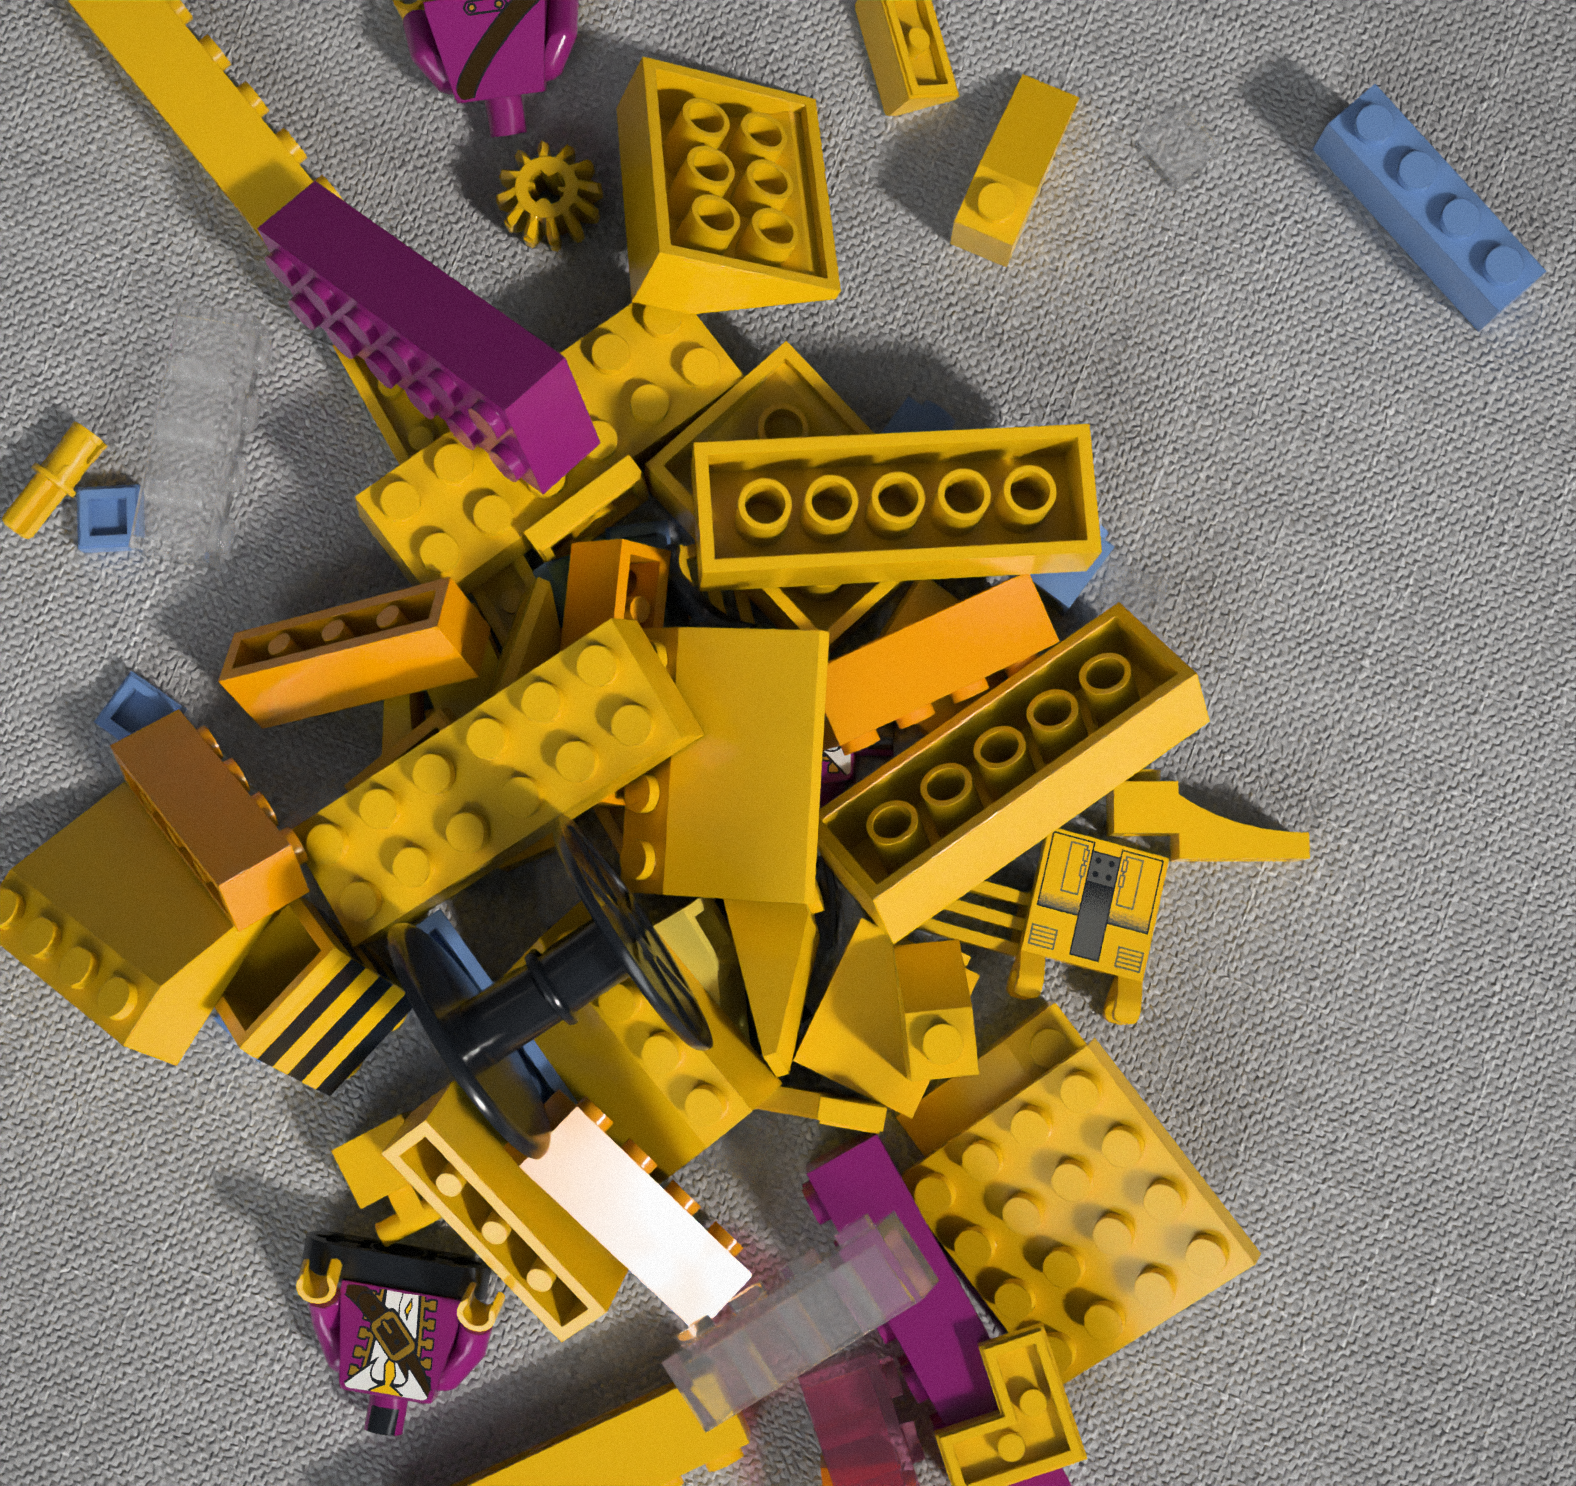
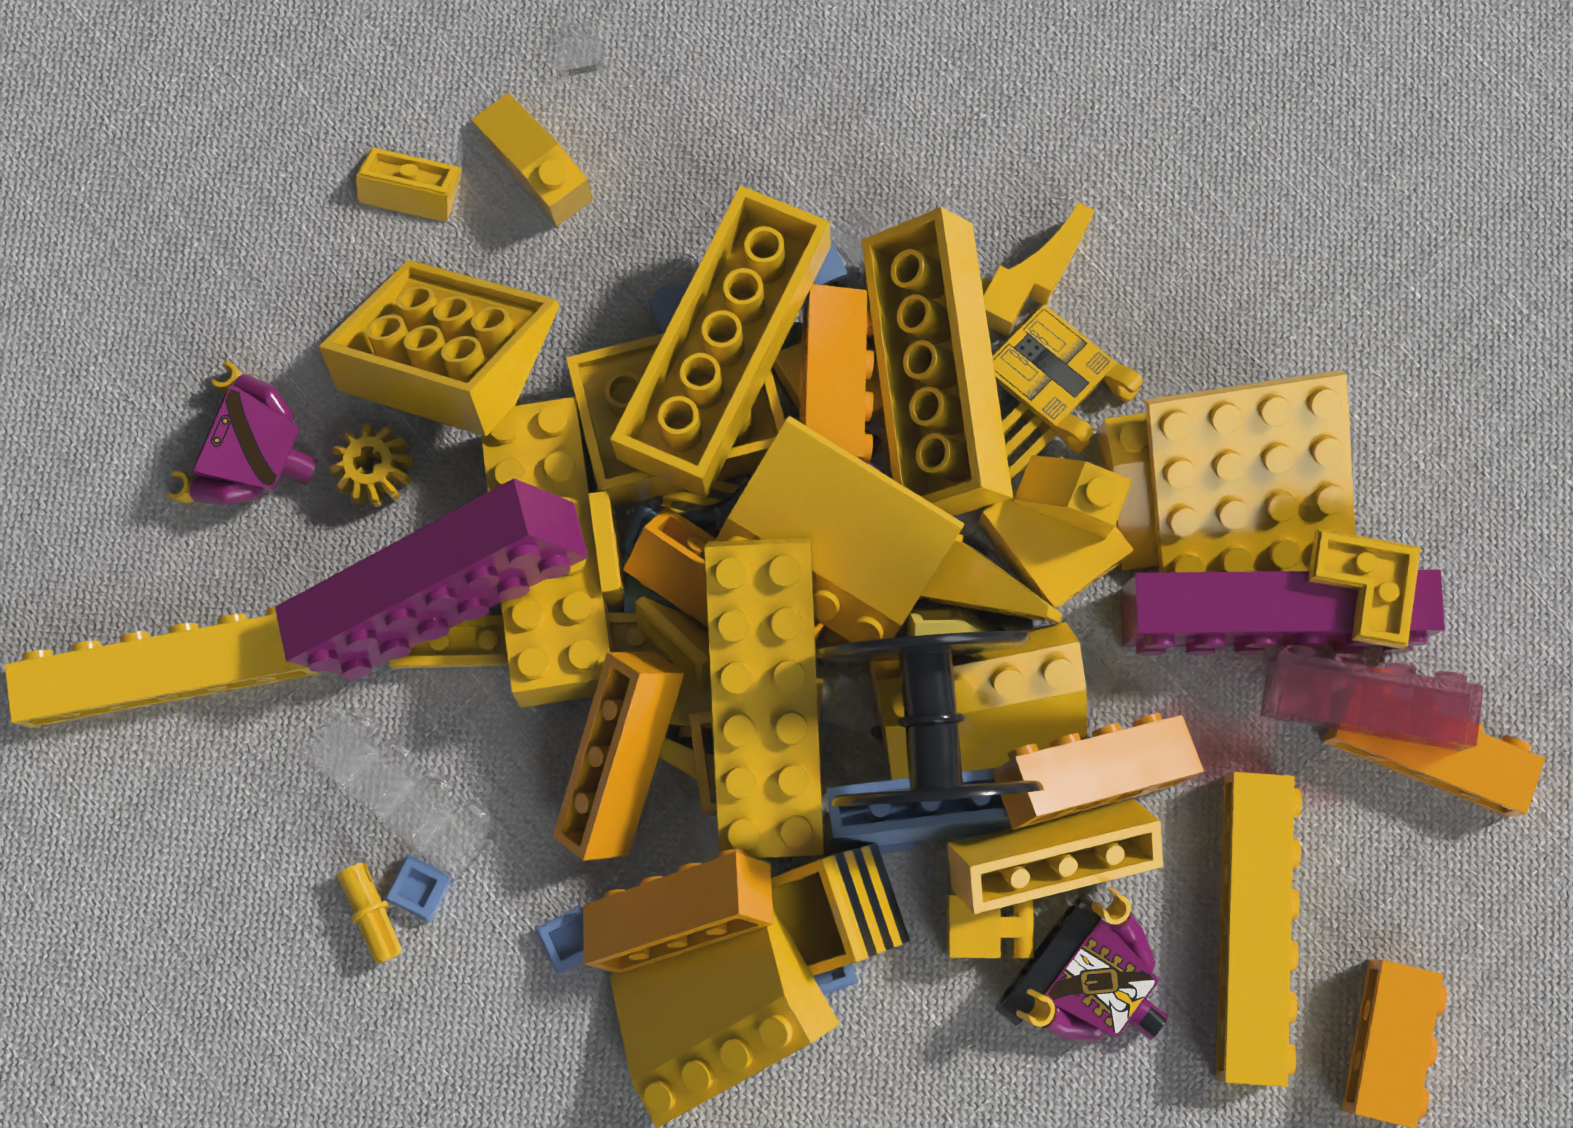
camera: 65 degrees left, 5 degrees down
(800, 1320) = (1234, 688): clear brick -> none
(828, 1108) = (1101, 598): yellow tile -> none

